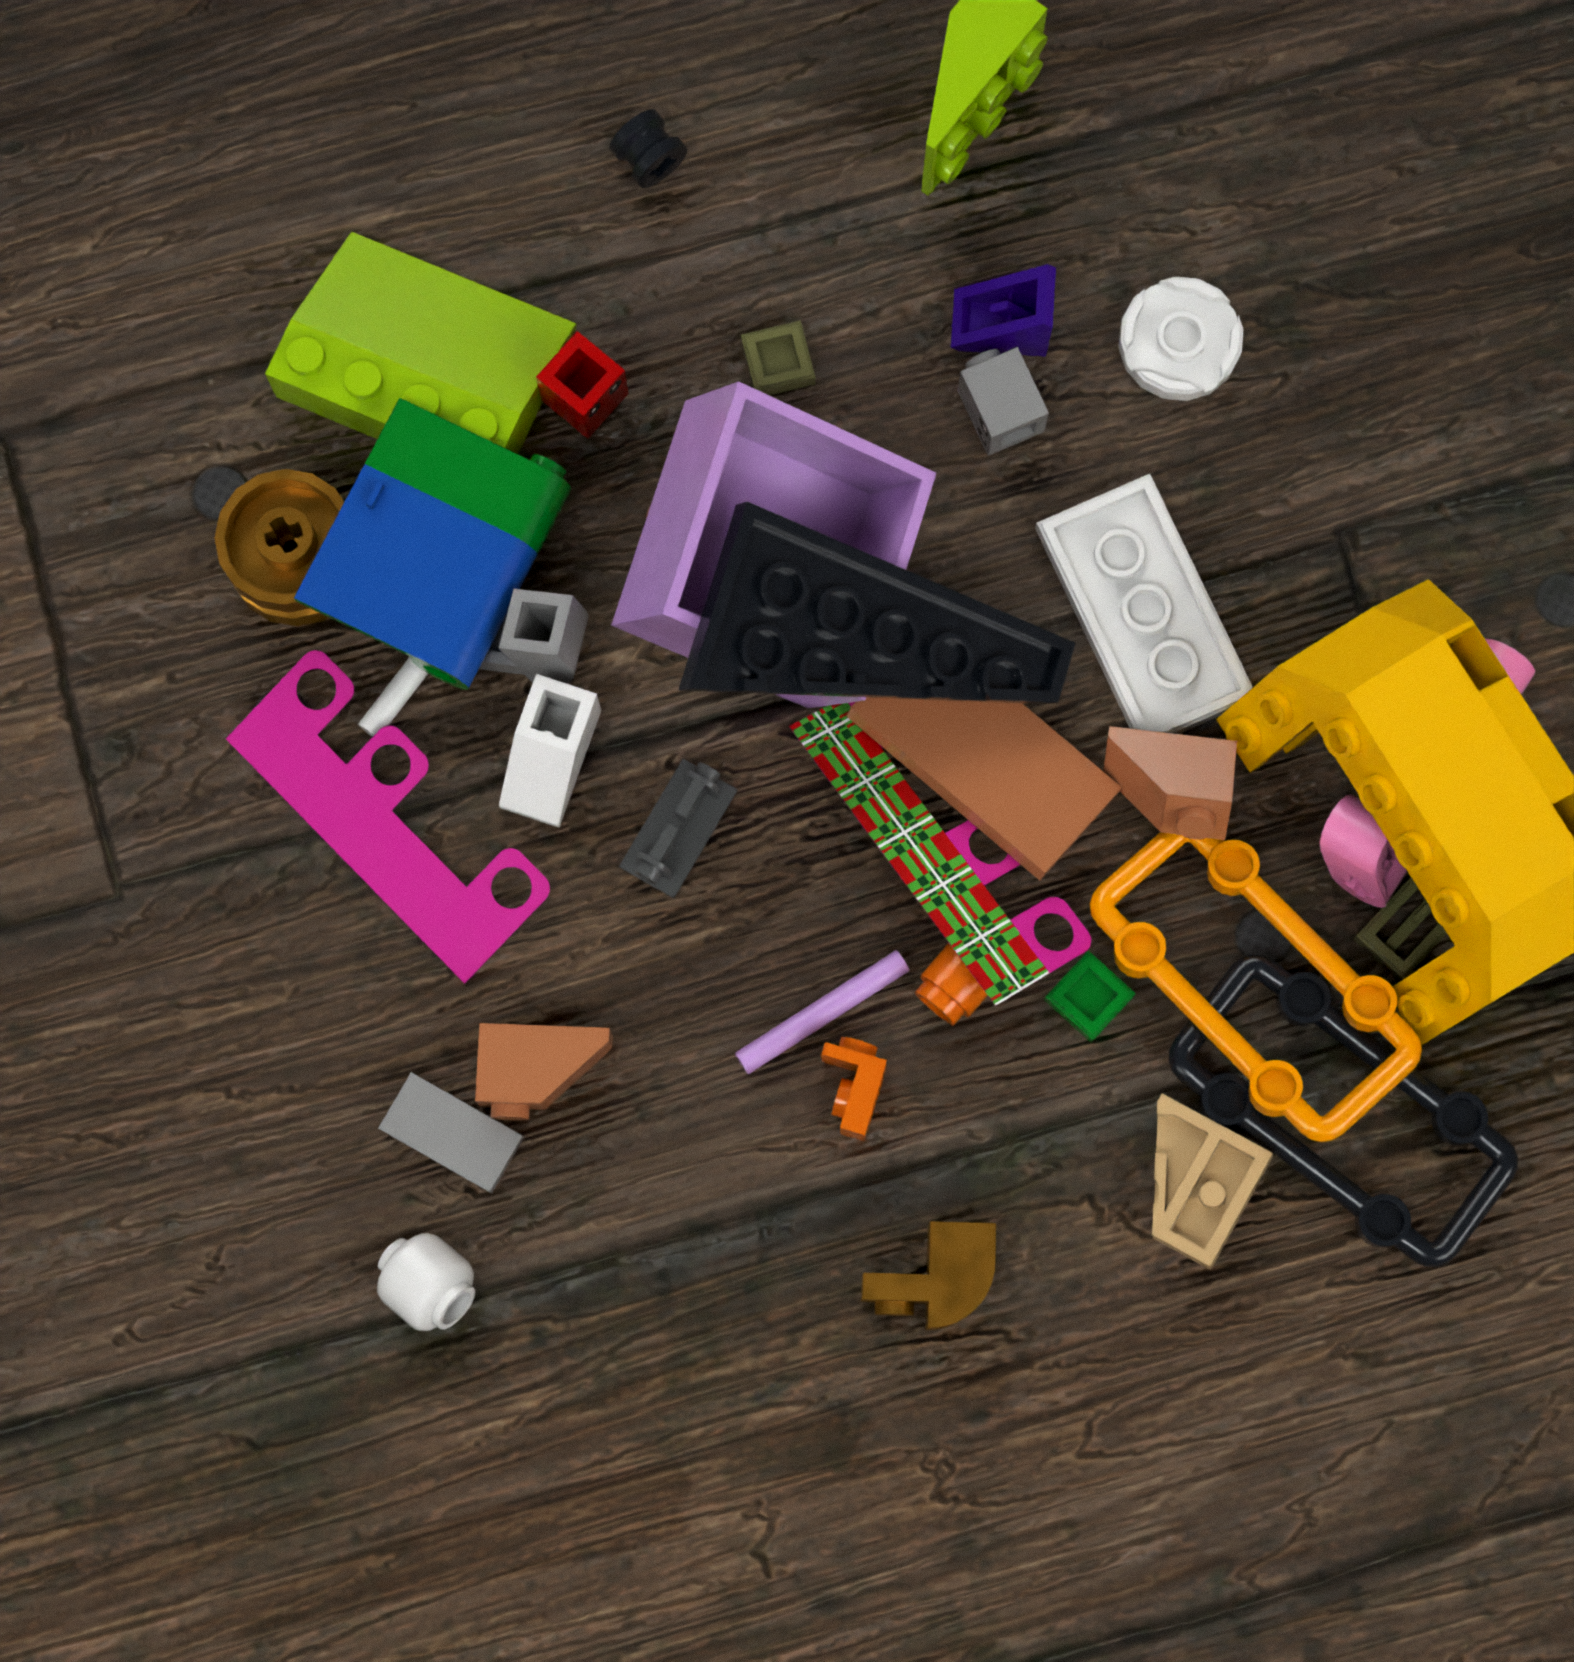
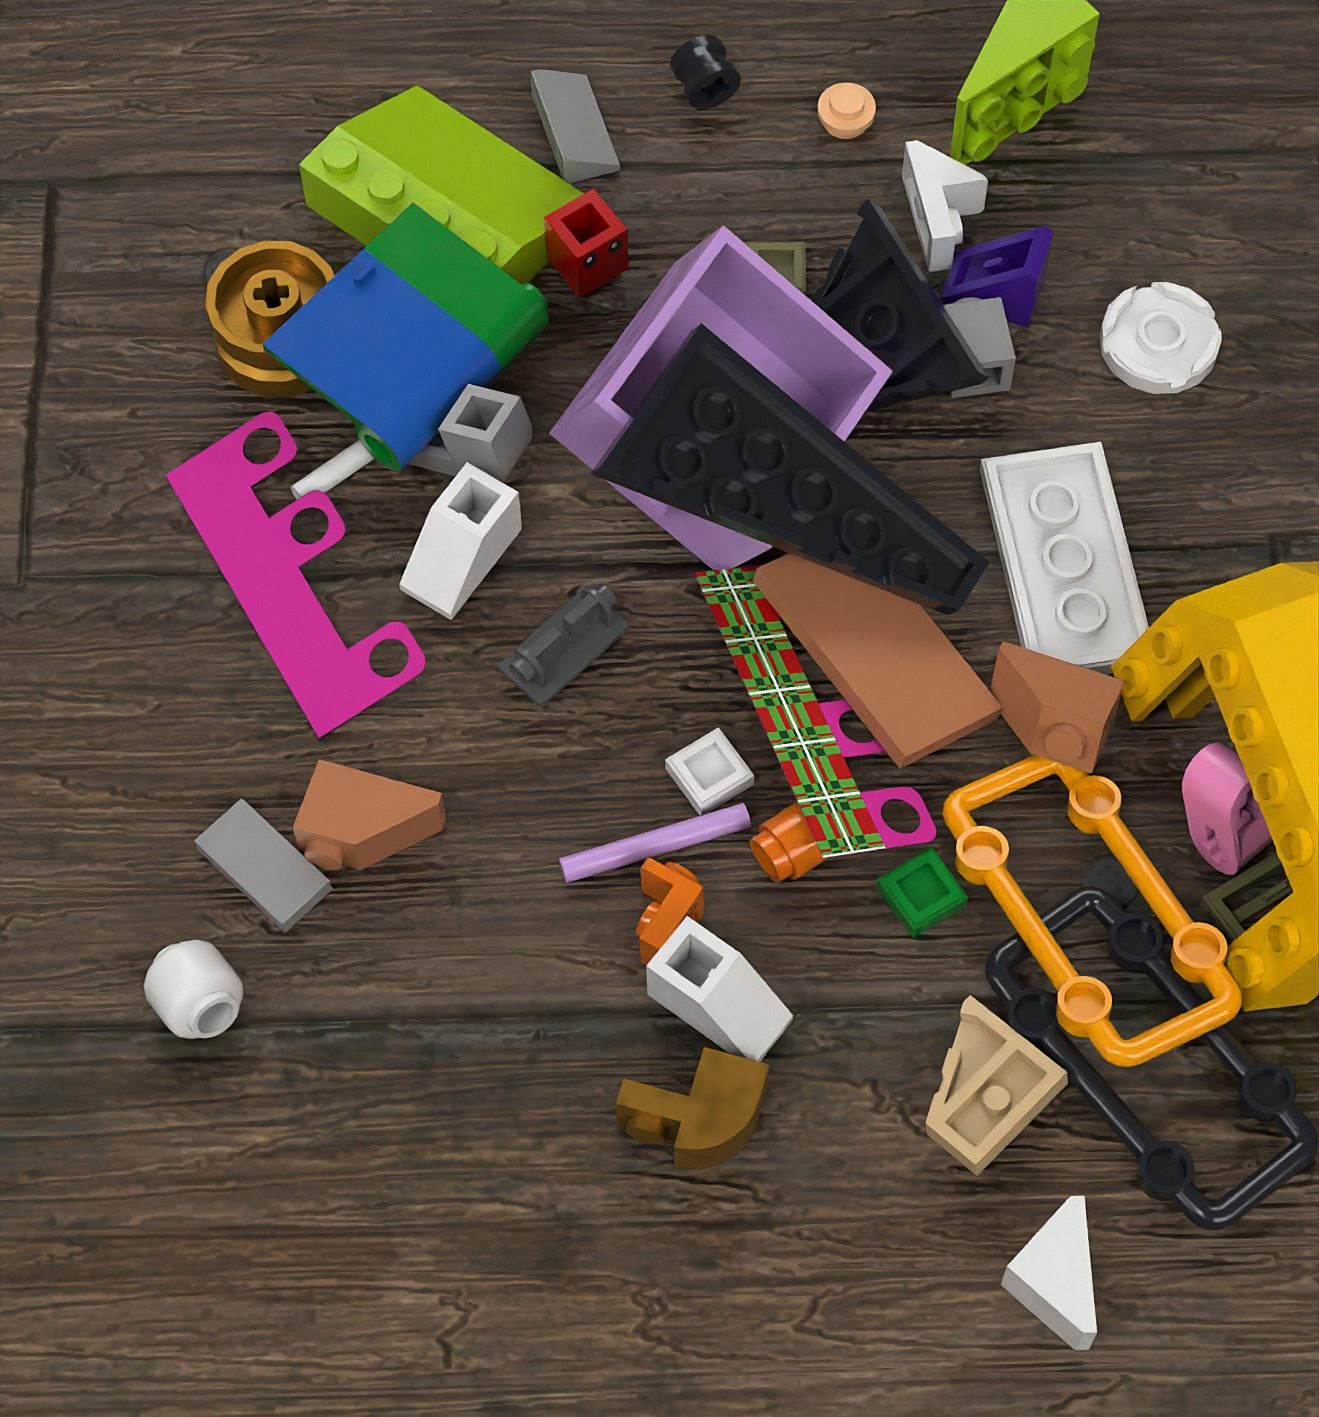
camera: 15 degrees right, 15 degrees down
(527, 240) = (573, 125): none -> light grey slope
(803, 153) = (846, 110): none -> light nougat plate
(855, 924) = (709, 772): none -> white tile
(909, 395) = (896, 315): none -> black wing
(917, 231) = (938, 195): none -> white slope
(928, 1159) = (716, 992): none -> white slope
(1308, 1348) = (1056, 1277): none -> white slope

